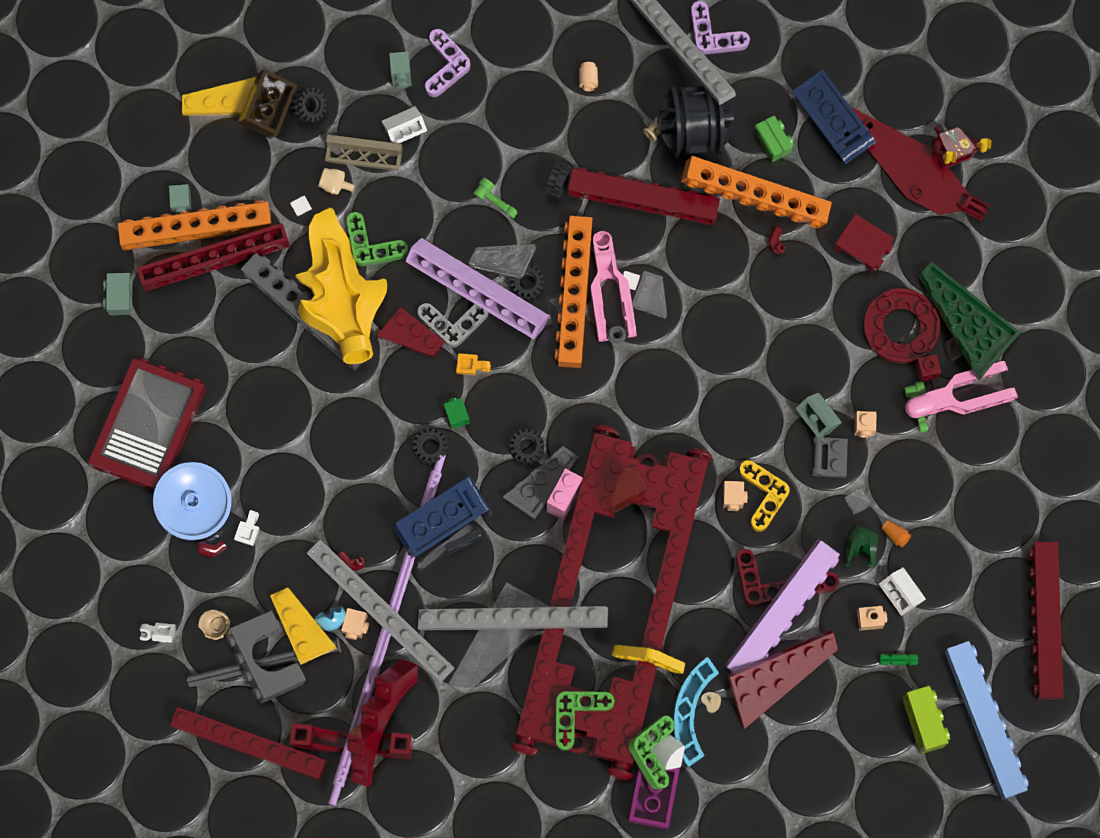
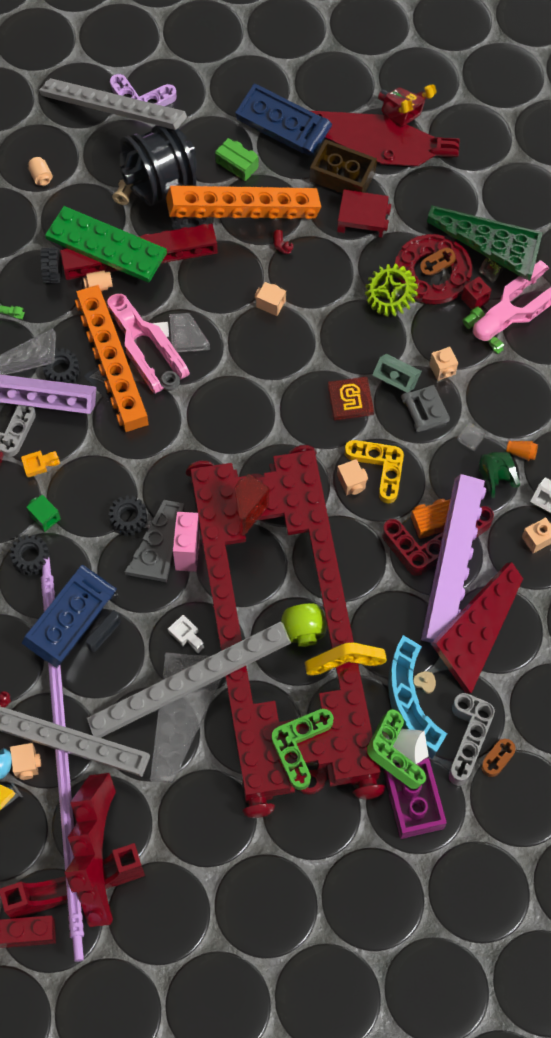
camera: 25 degrees left, 10 degrees down
(530, 571) = (186, 632): none -> white plate
(595, 210) = (99, 278): none -> light nougat brick
(615, 180) = (106, 244): none -> green plate
(630, 610) = (305, 624): none -> lime wheel
(721, 768) = (469, 742): none -> light grey beam
(737, 788) = (494, 754): none -> dark orange beam
(740, 293) = (270, 298): none -> light nougat brick
(768, 419) = (350, 398): none -> clear red tile
(784, 562) = (431, 518): none -> orange brick
(850, 340) = (375, 290): none -> lime gear
(865, 191) = (342, 168): none -> dark brown brick
(908, 316) = (435, 258): none -> dark orange beam

